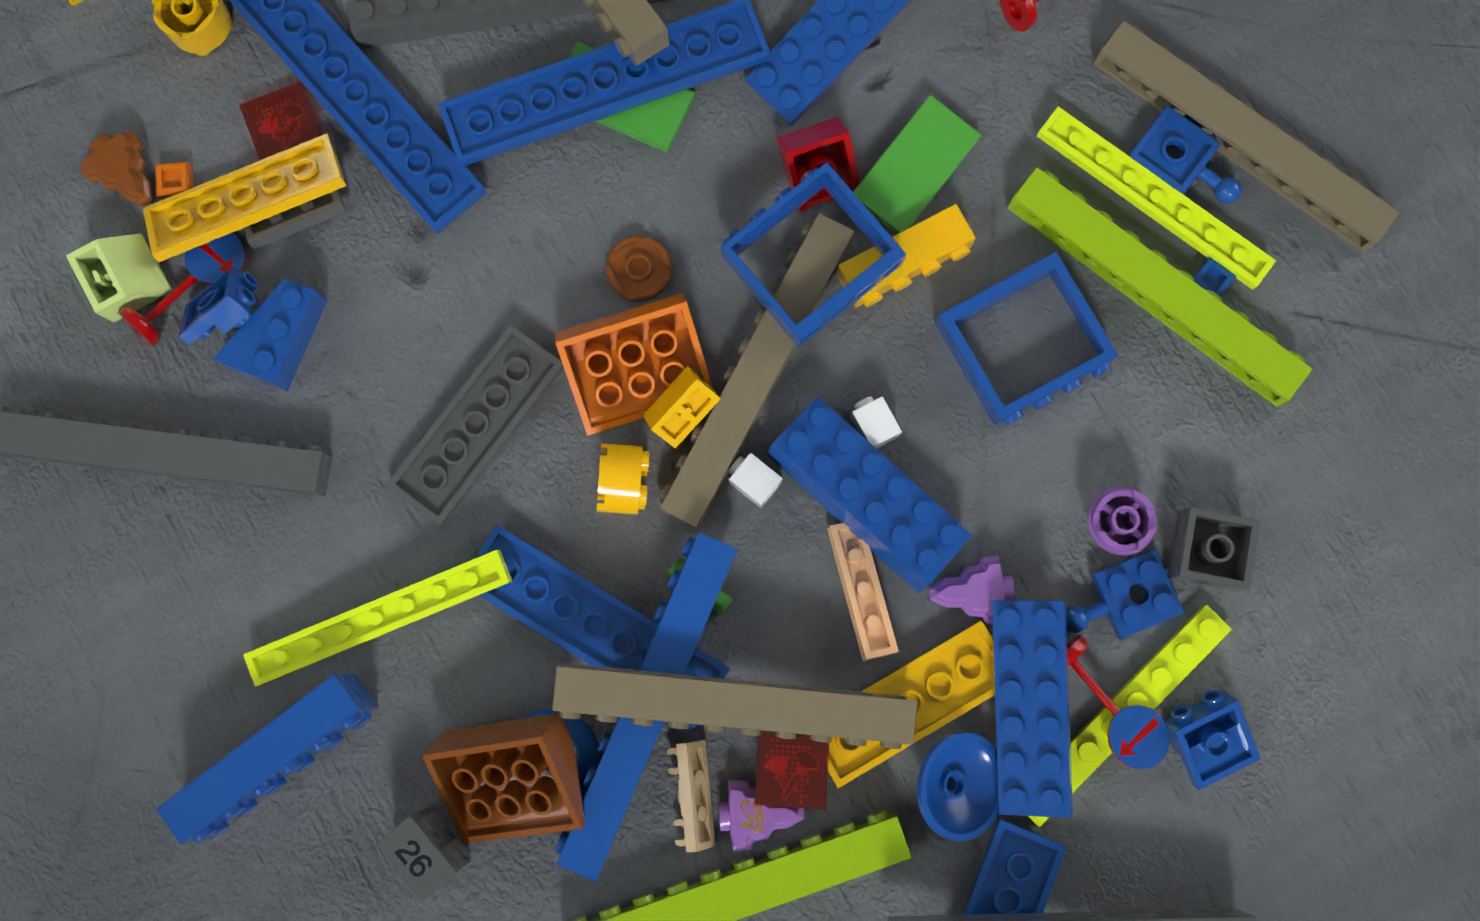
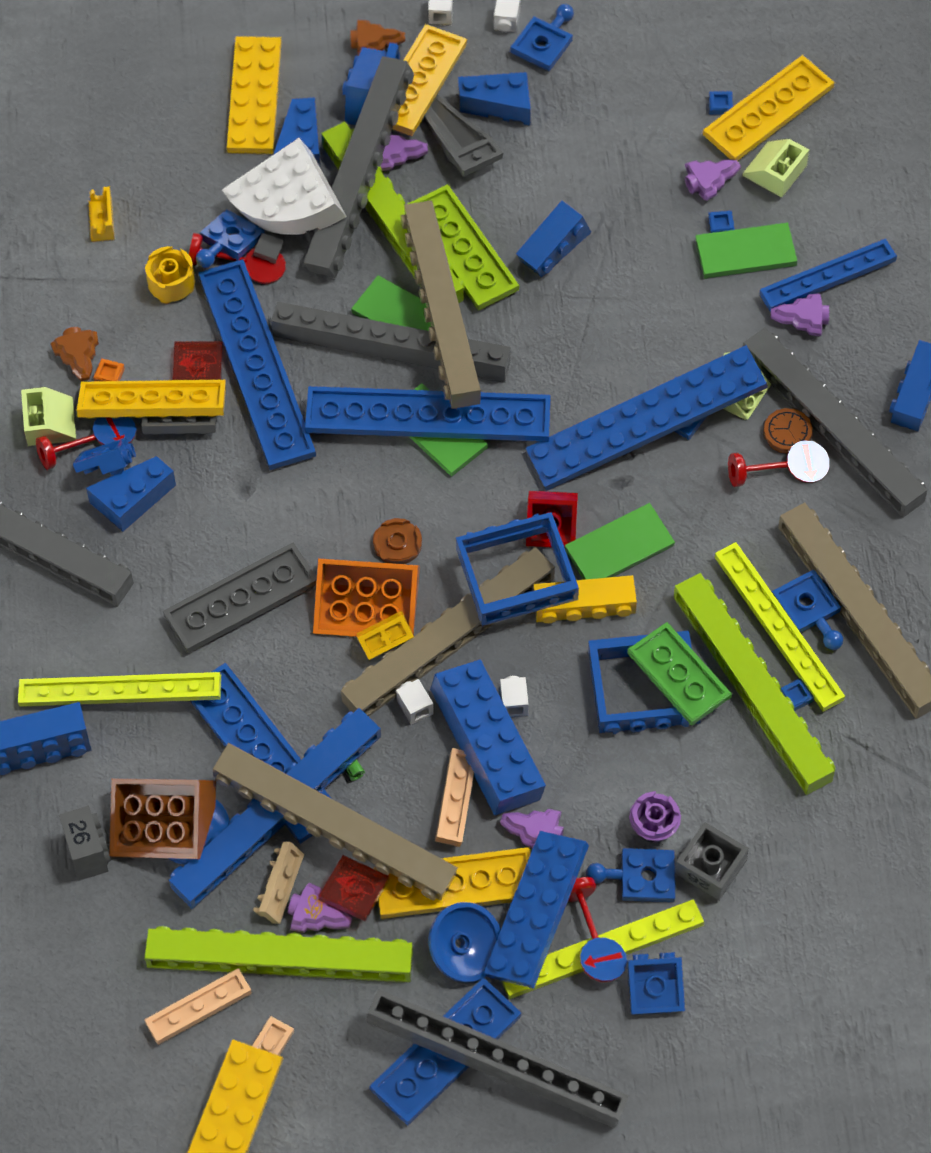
camera: 20 degrees right, 20 degrees down
(621, 479) = (323, 663): yellow brick -> none
(1072, 316) = (679, 673): none -> bright green tile

